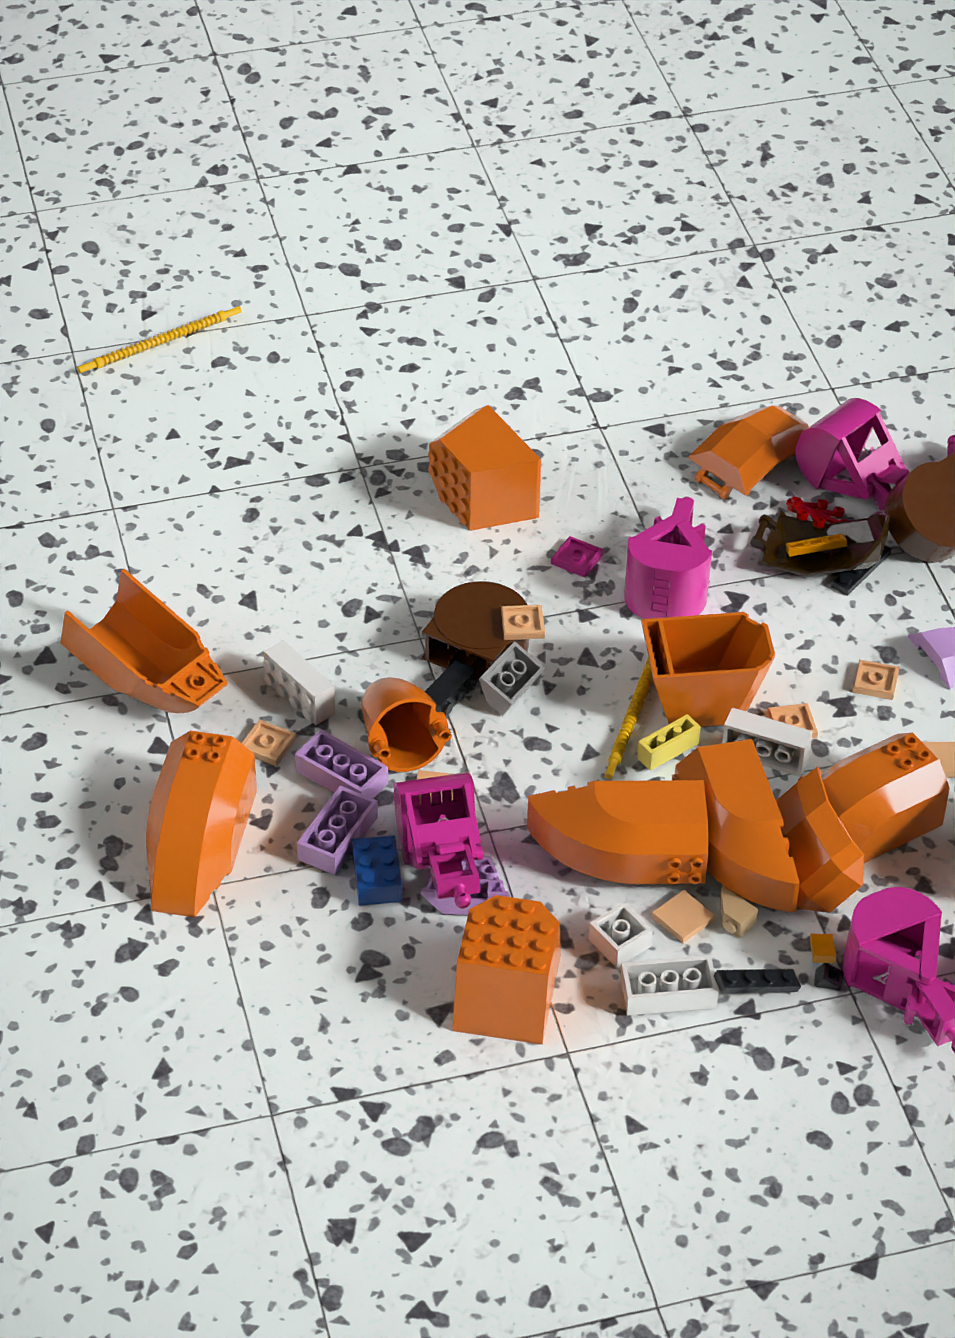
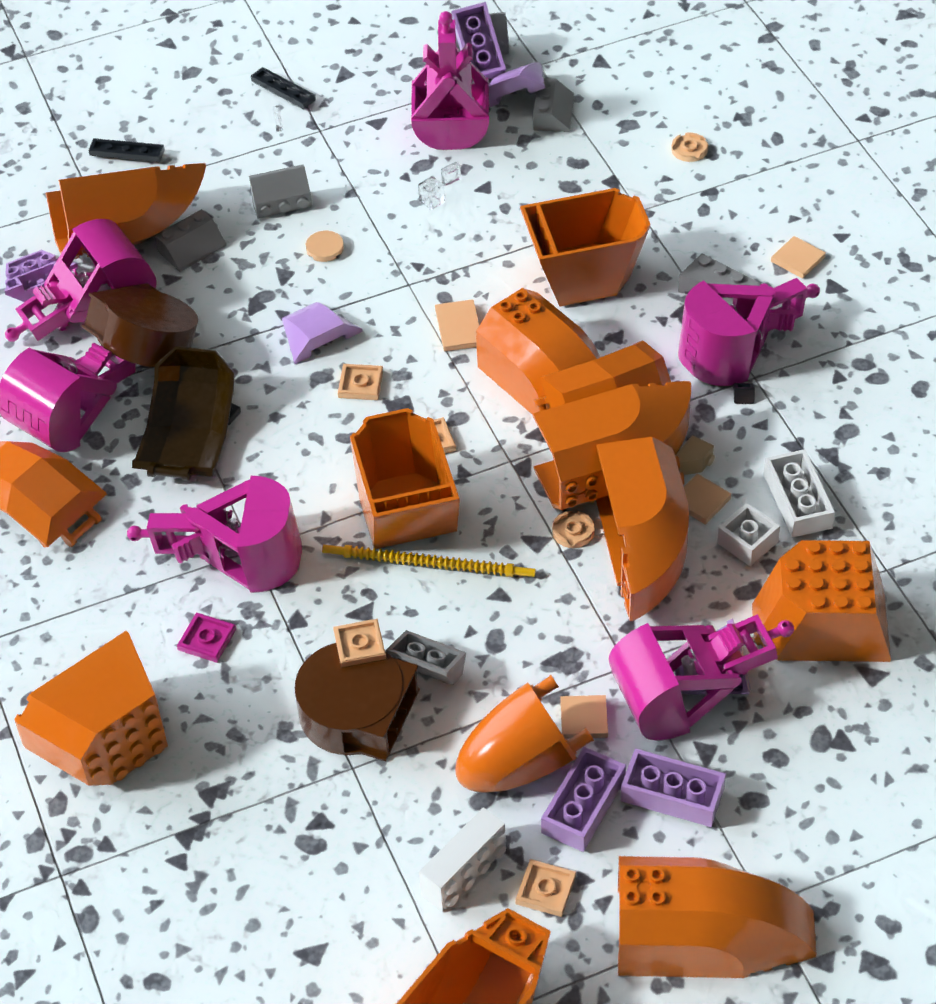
camera: 95 degrees left, 5 degrees up
(377, 870) = (717, 743): blue brick -> none
(452, 686) = (438, 721): black brick -> none
(668, 742) = (488, 522): light yellow brick -> none
(757, 981) = (776, 430): black plate -> none
(777, 743) = (475, 445): white brick -> none
(816, 544) = (182, 430): light orange tile -> none
(818, 515) = (113, 454): red plant -> none
(822, 948) = (717, 393): light orange tile -> none

